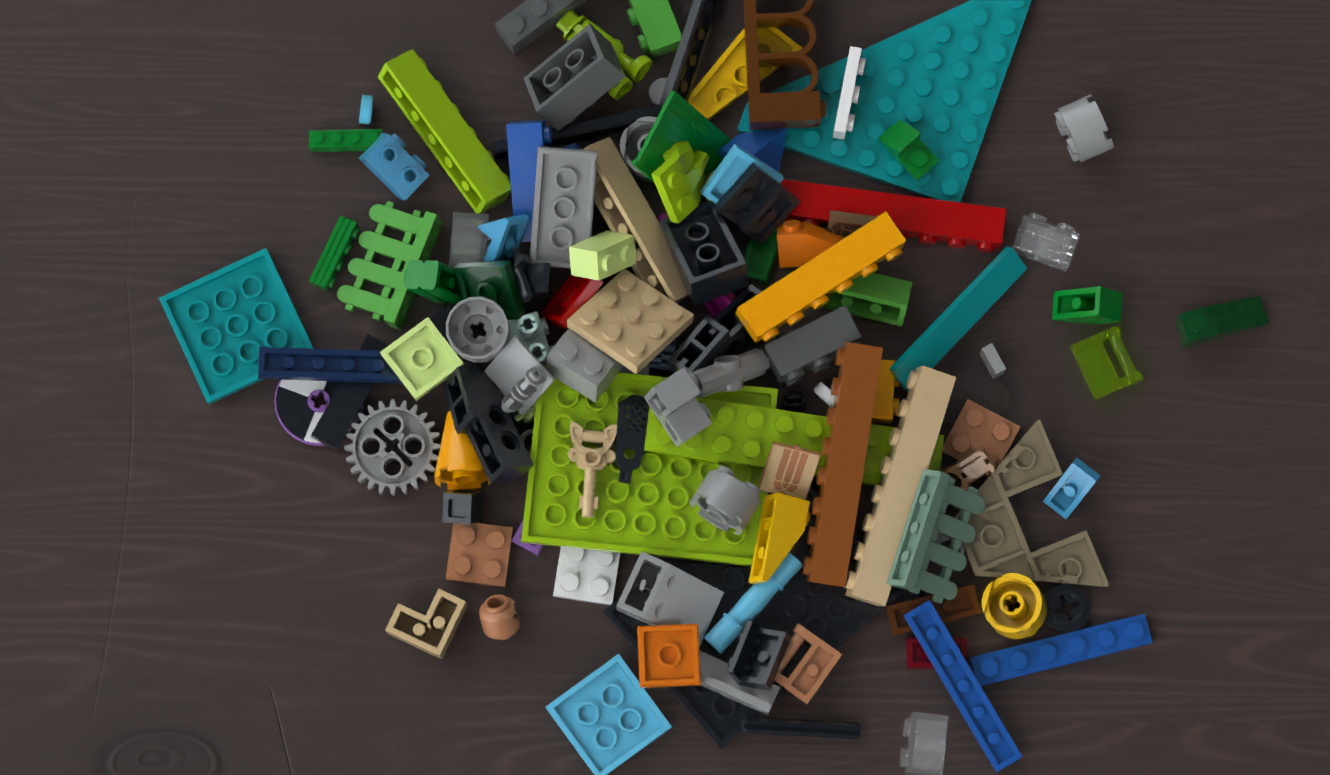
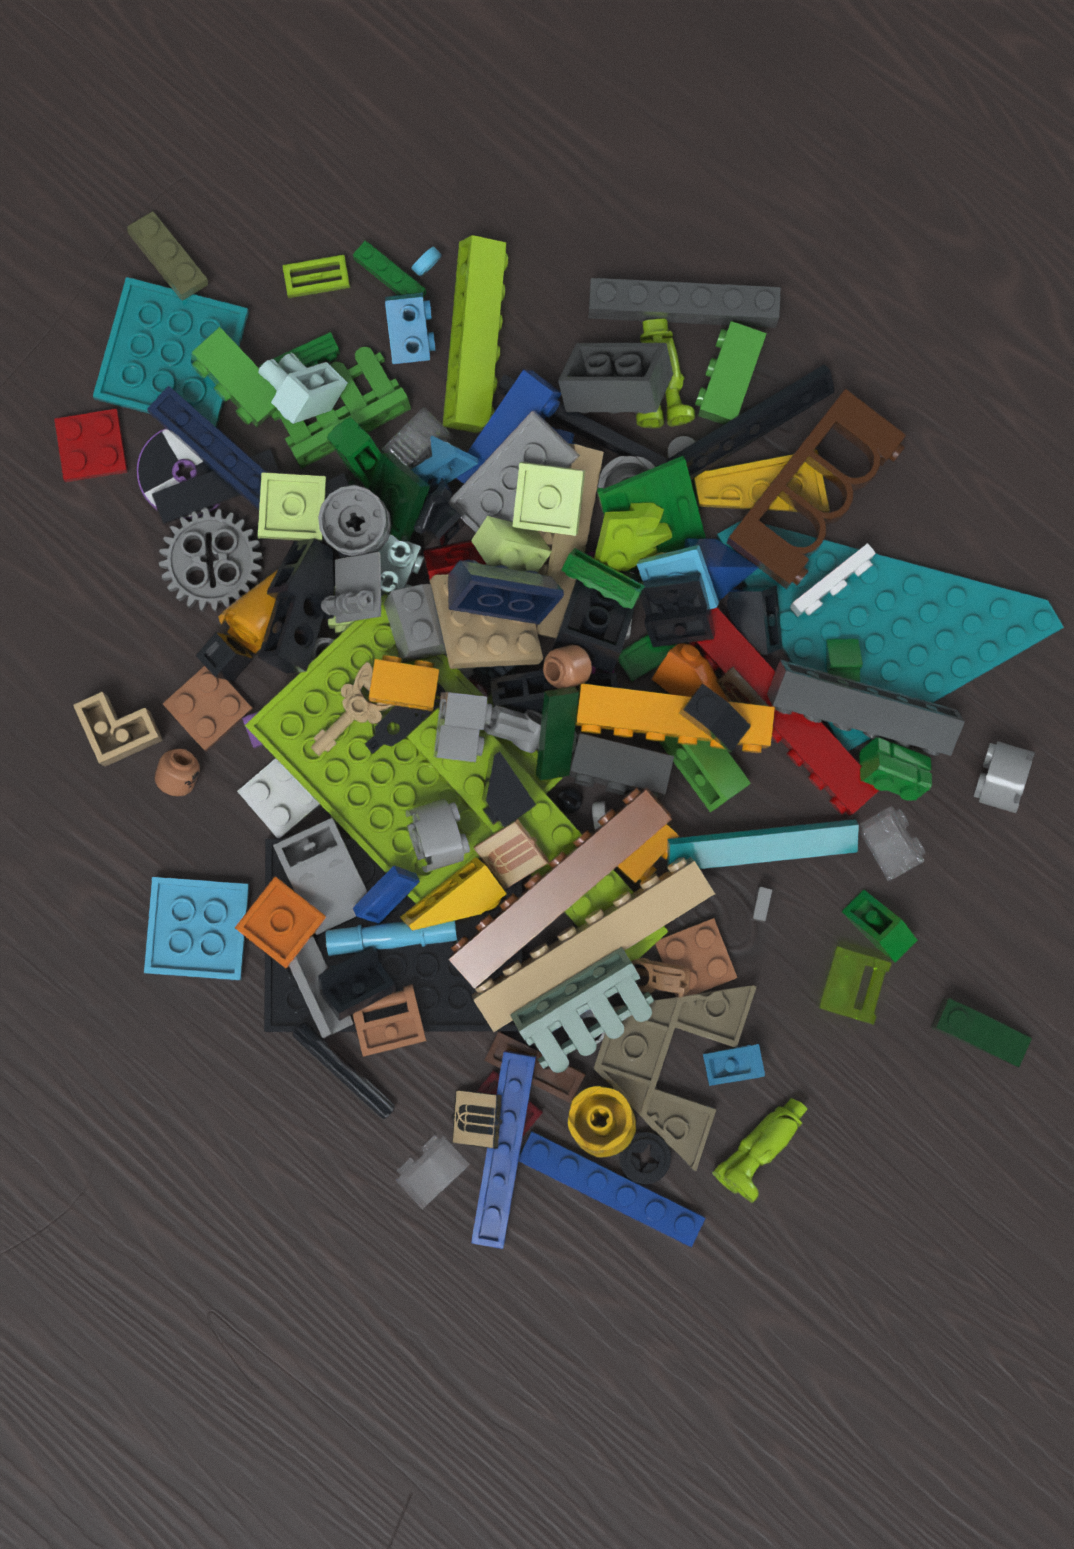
camera: 35 degrees right, 5 degrees up
(175, 258) = (167, 256): none -> olive plate
(234, 439) = (91, 445): none -> red plate
(286, 211) = (320, 287): none -> lime tile
(302, 301) = (235, 377): none -> bright green brick
(357, 271) = (302, 390): none -> light aqua brick
(602, 198) = (548, 498): none -> yellowish green plate
(612, 413) = (404, 683): none -> light orange brick
(627, 290) = (502, 592): none -> dark blue slope
(688, 223) = (602, 578): none -> green piece
(717, 304) = (567, 667): none -> nougat head
(725, 574) = (386, 894): none -> blue tile
(748, 429) = (504, 793): none -> black slope
(749, 357) = (557, 733): none -> dark green tile
(815, 162) = (756, 616): none -> black slope
(851, 251) = (715, 717): none -> black slope
(925, 680) = (477, 1119): none -> piece
(947, 161) = (865, 708): none -> dark grey brick
(1004, 187) = (895, 769): none -> green brick
(1139, 532) = (760, 1149): none -> lime piece

